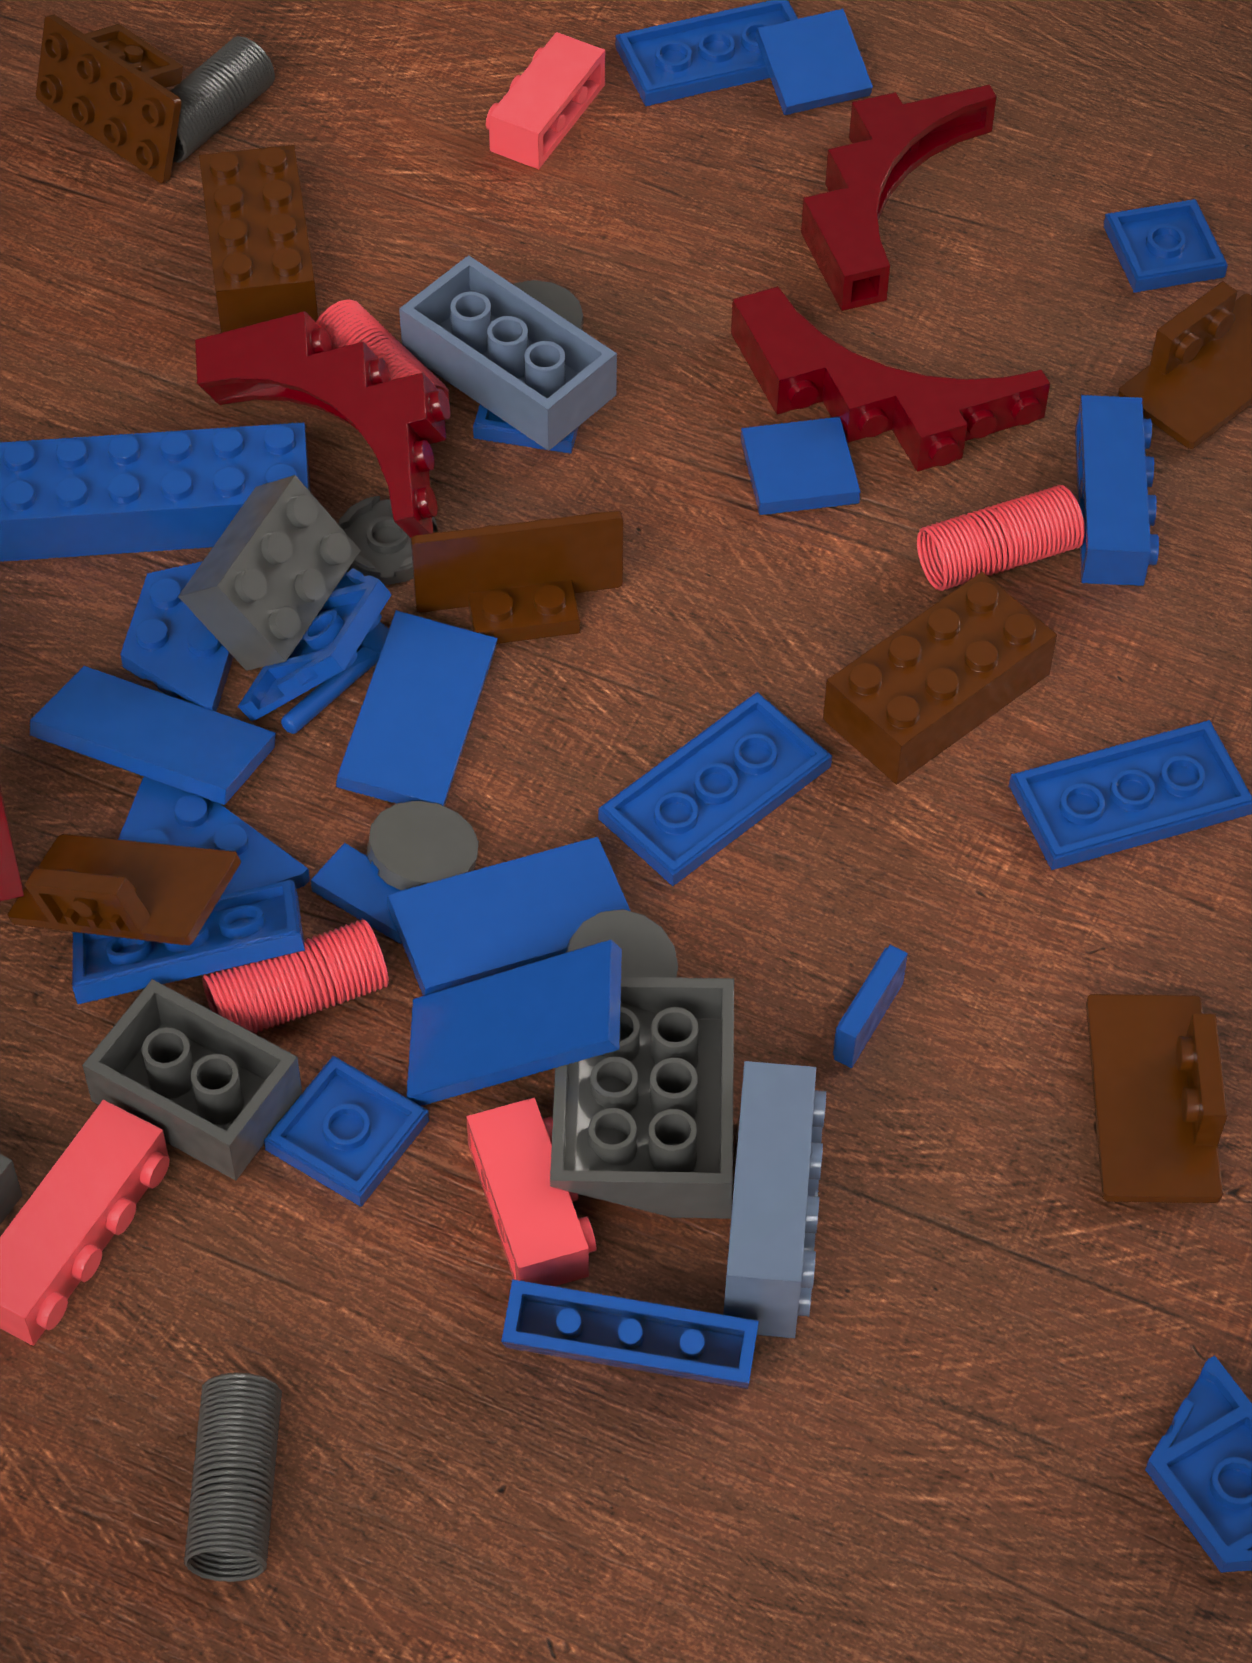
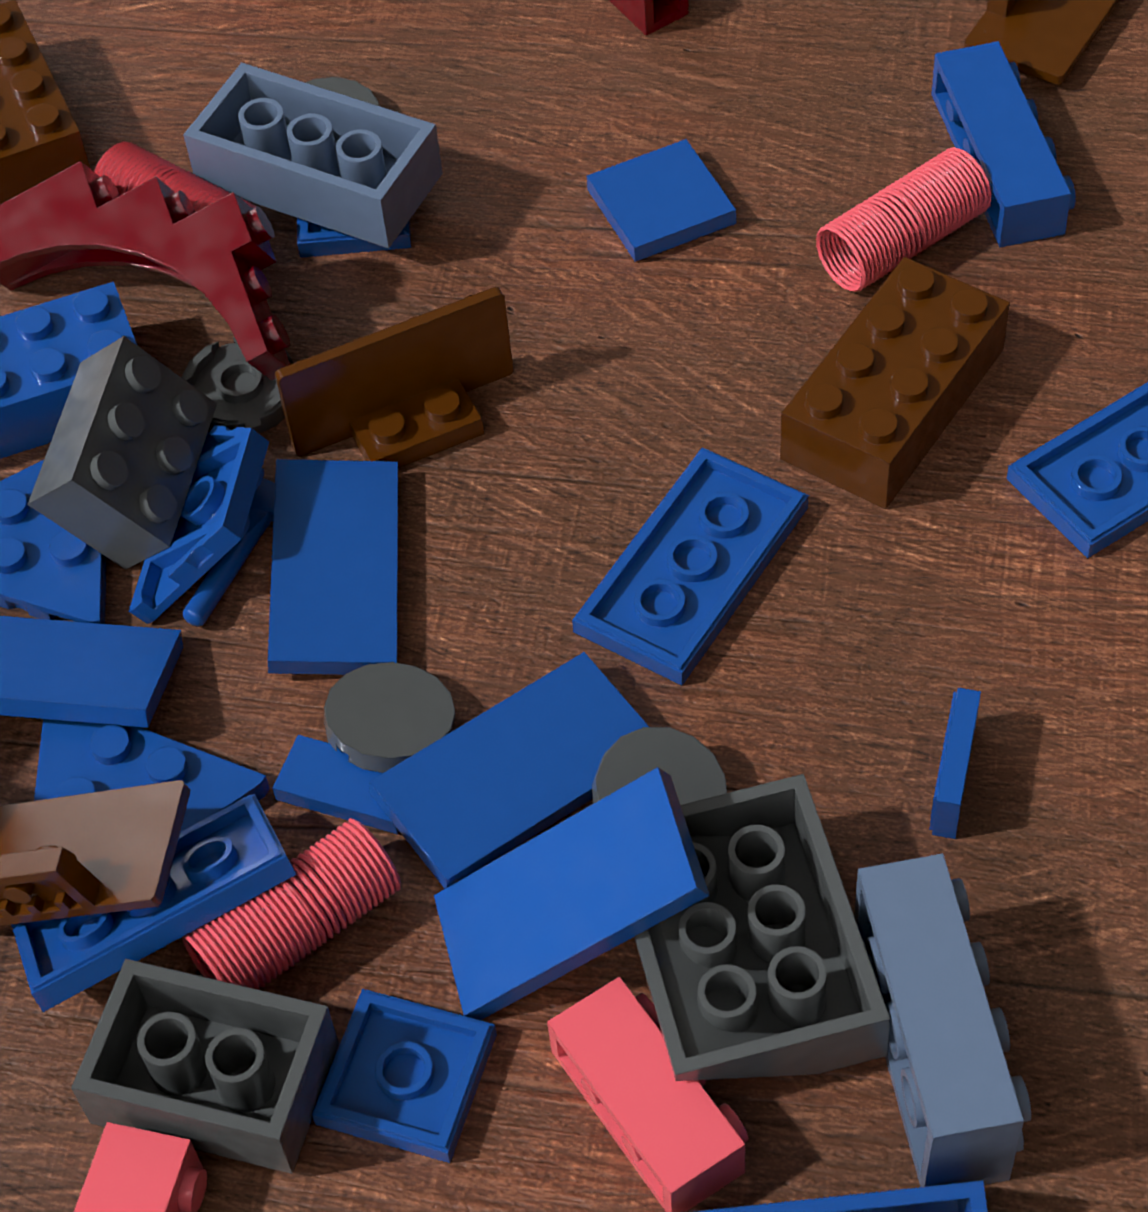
camera: 10 degrees left, 0 degrees up
(925, 412) = (774, 113): dark red arch -> none

